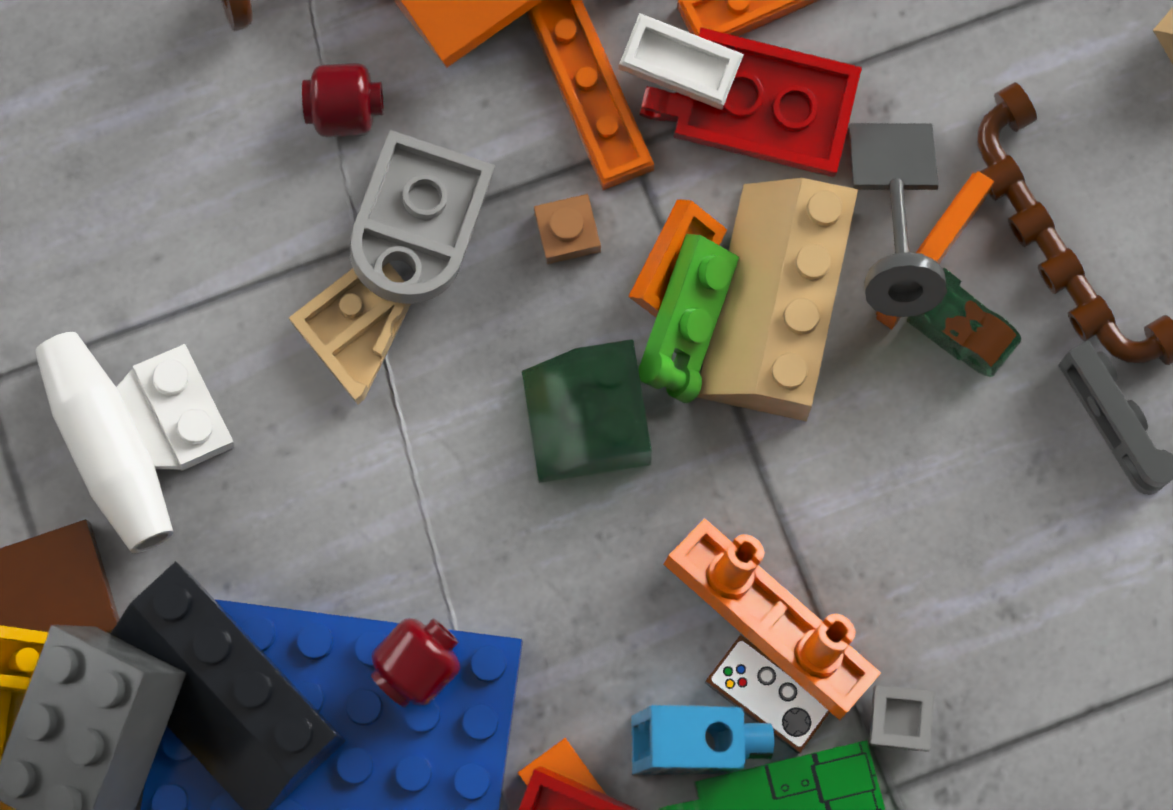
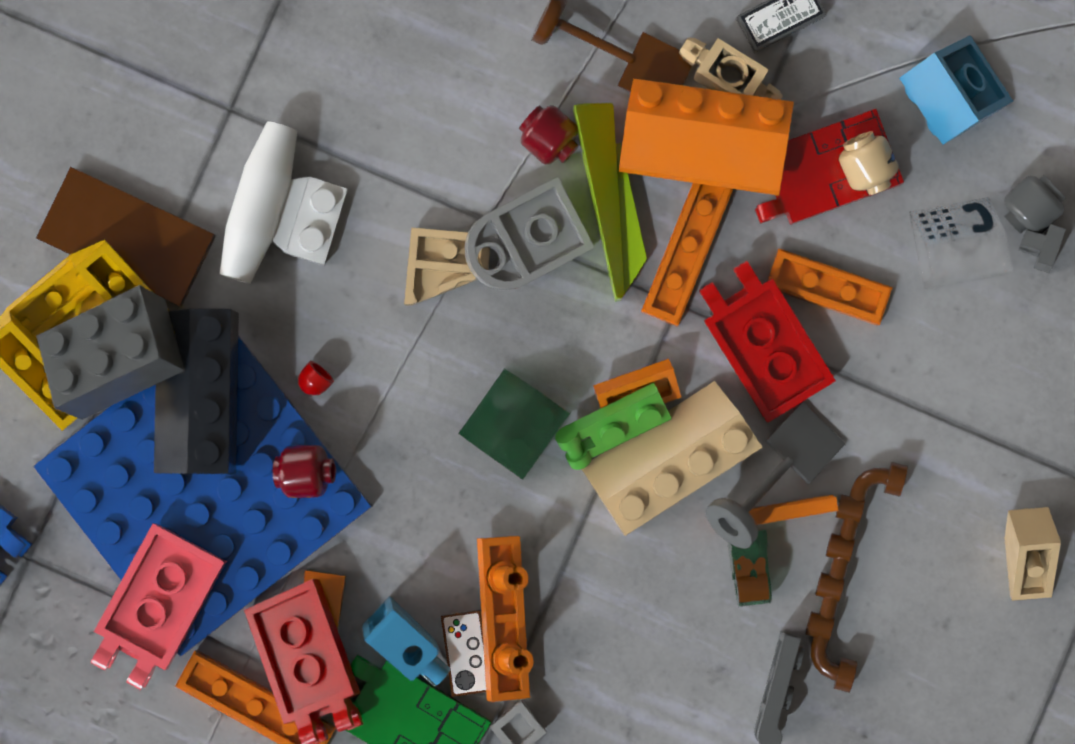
camera: 45 degrees right, 10 degrees up
(335, 567) = (314, 379): none -> red hinge
(460, 104) = (610, 195): none -> lime wedge
(567, 229) = (600, 316): medium nougat plate -> none
(680, 61) = (742, 288): white tile -> none

